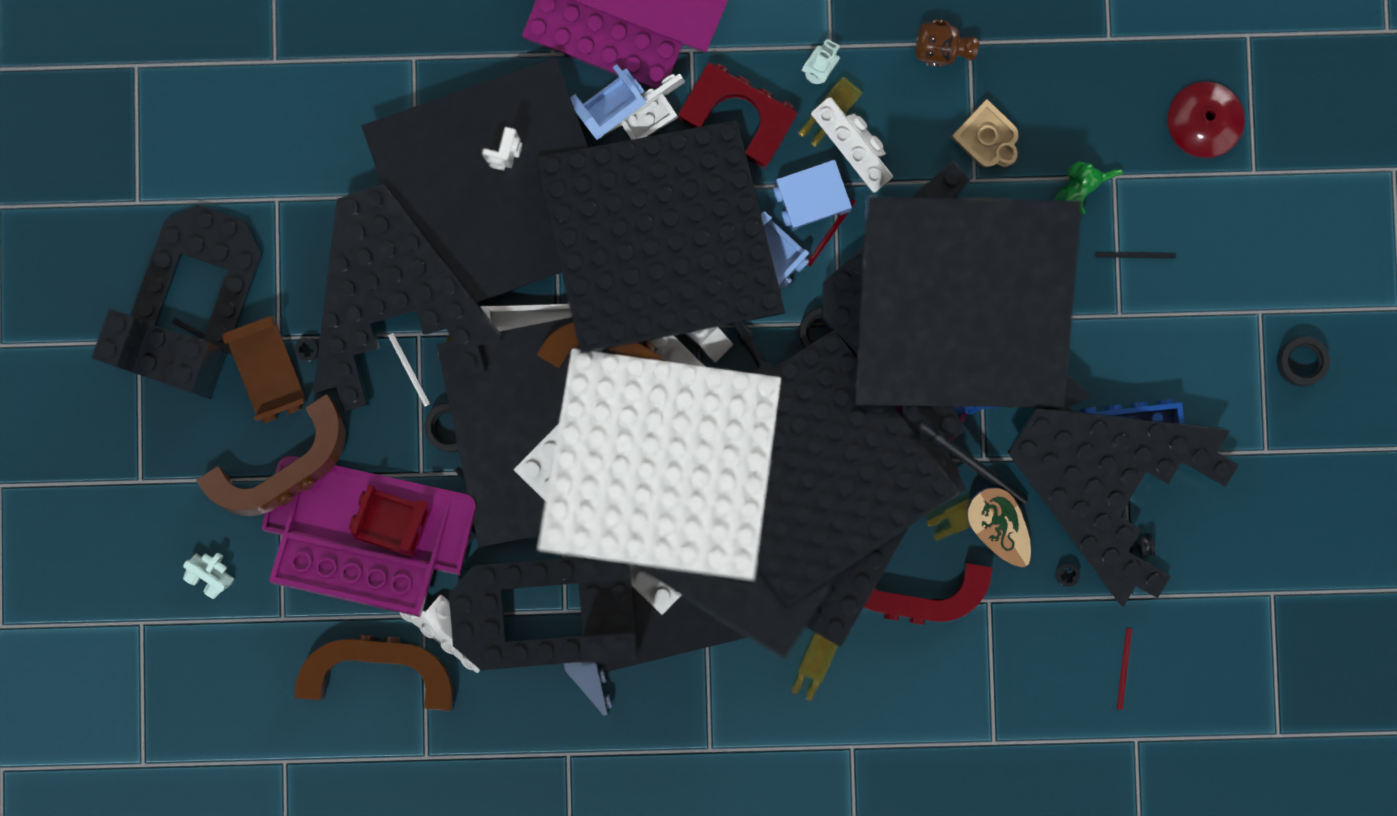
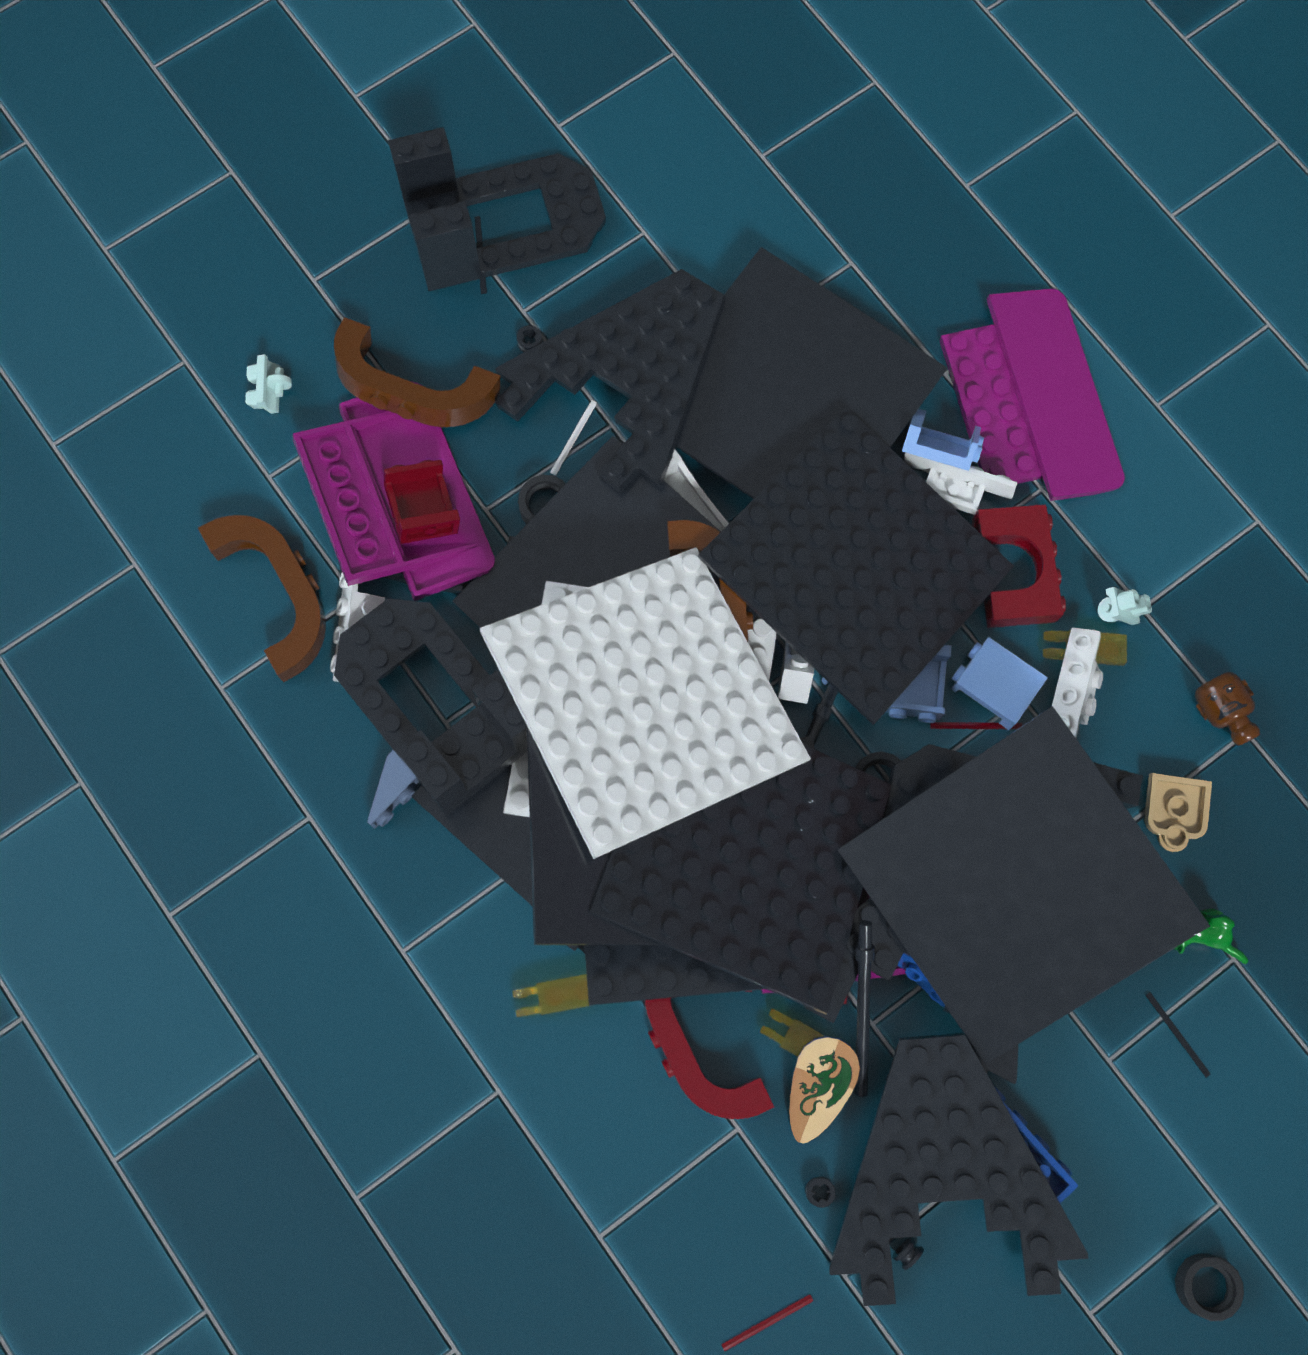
camera: 45 degrees right, 10 degrees down
(265, 368) = (488, 312): reddish brown panel -> none
(509, 149) = (833, 373): white bracket -> none

